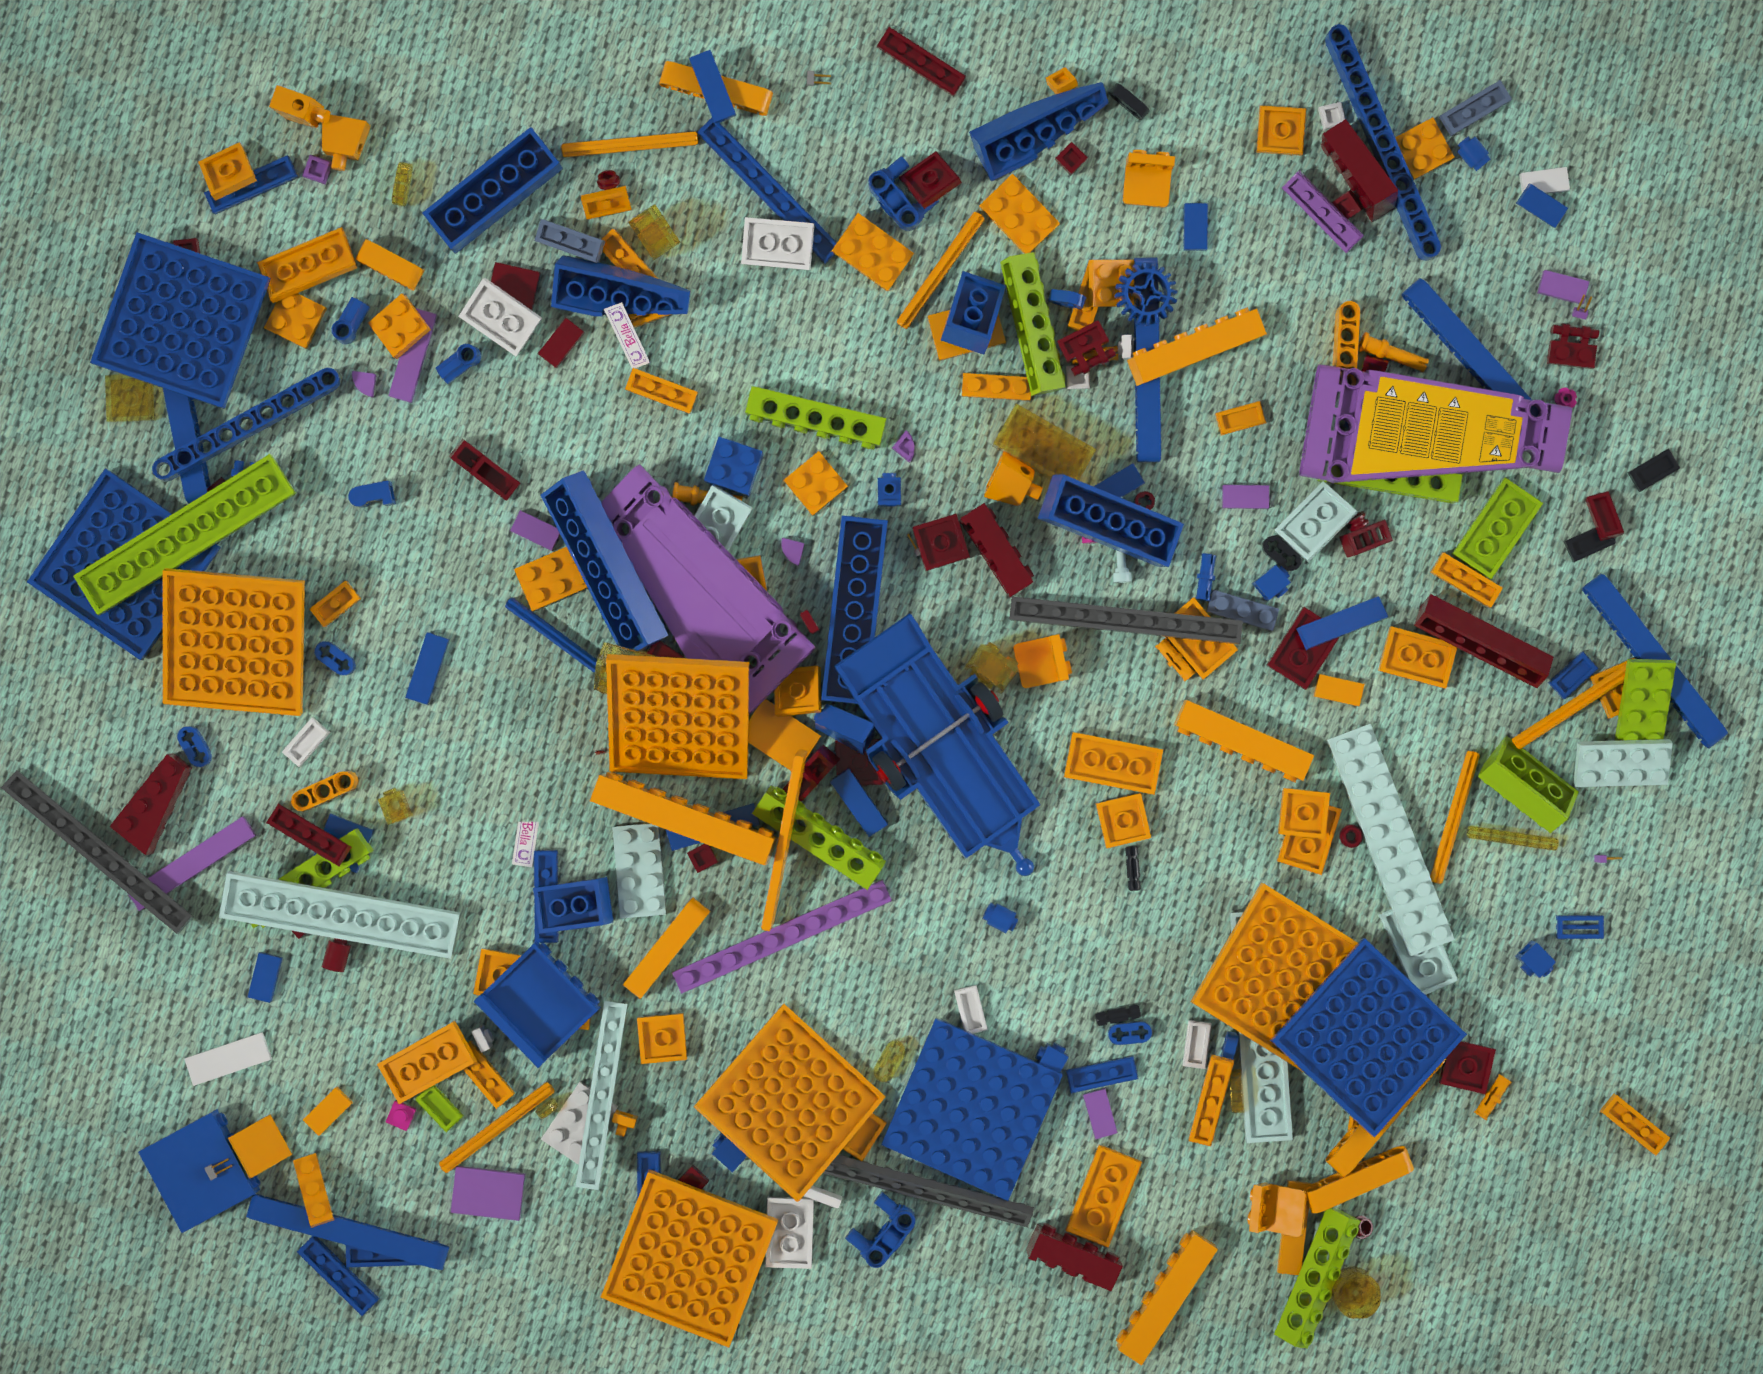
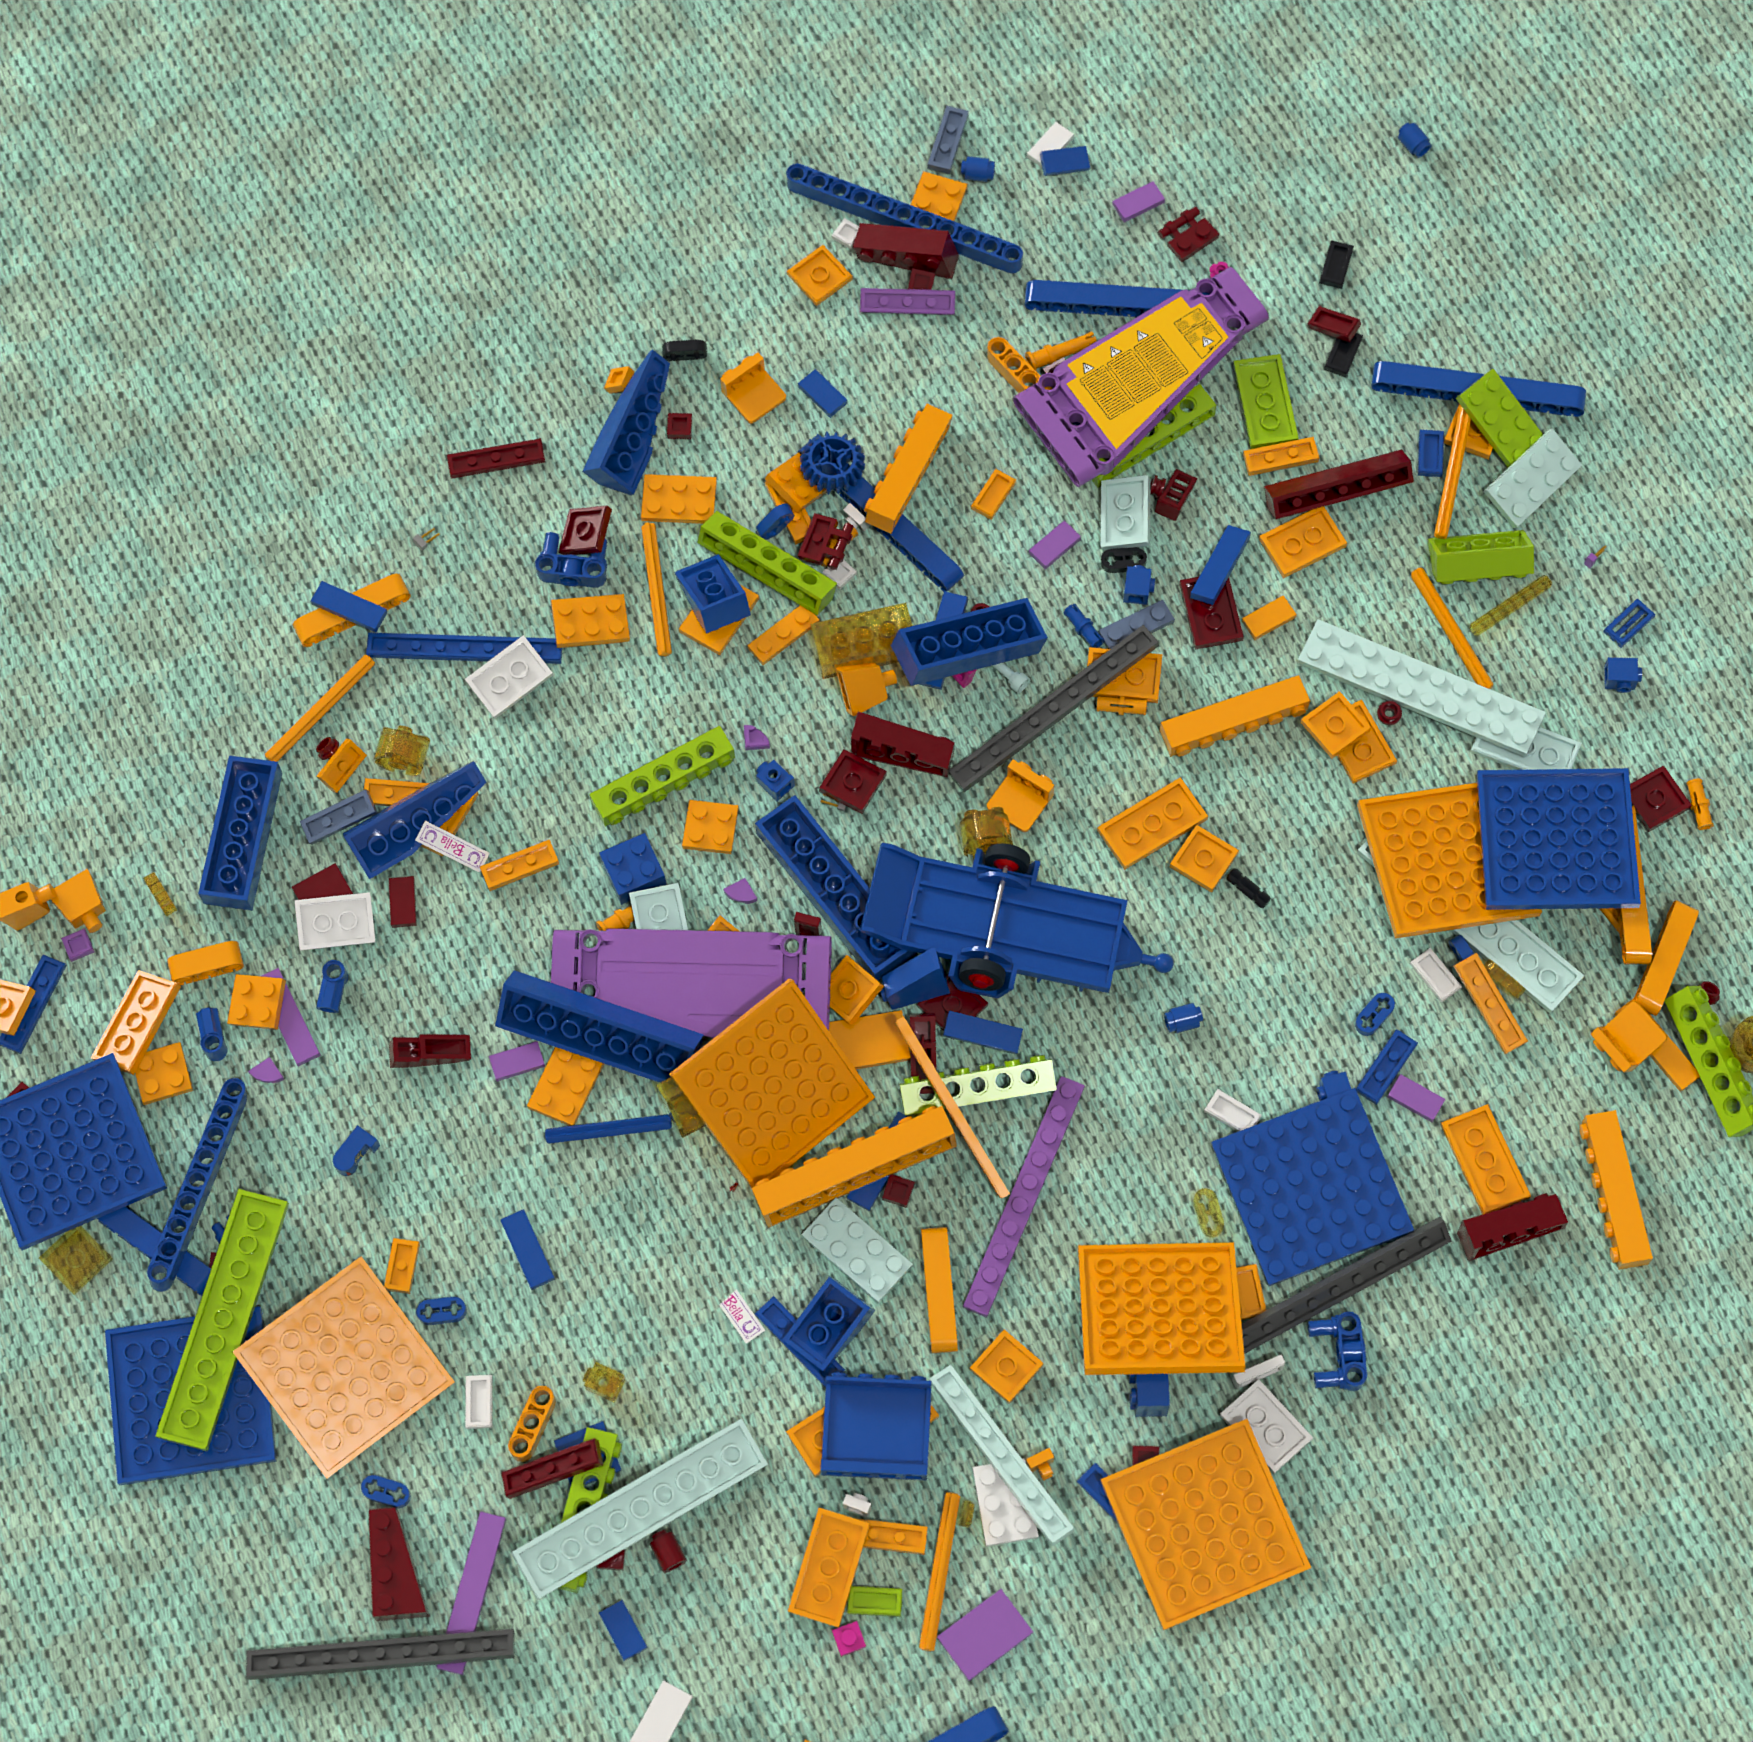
camera: 45 degrees left, 20 degrees down
(327, 1111) = (782, 1694): light orange tile -> none
(1117, 1015) = (1351, 1009): black axle -> none
(1581, 313) = (1172, 206): medium lavender piece -> none

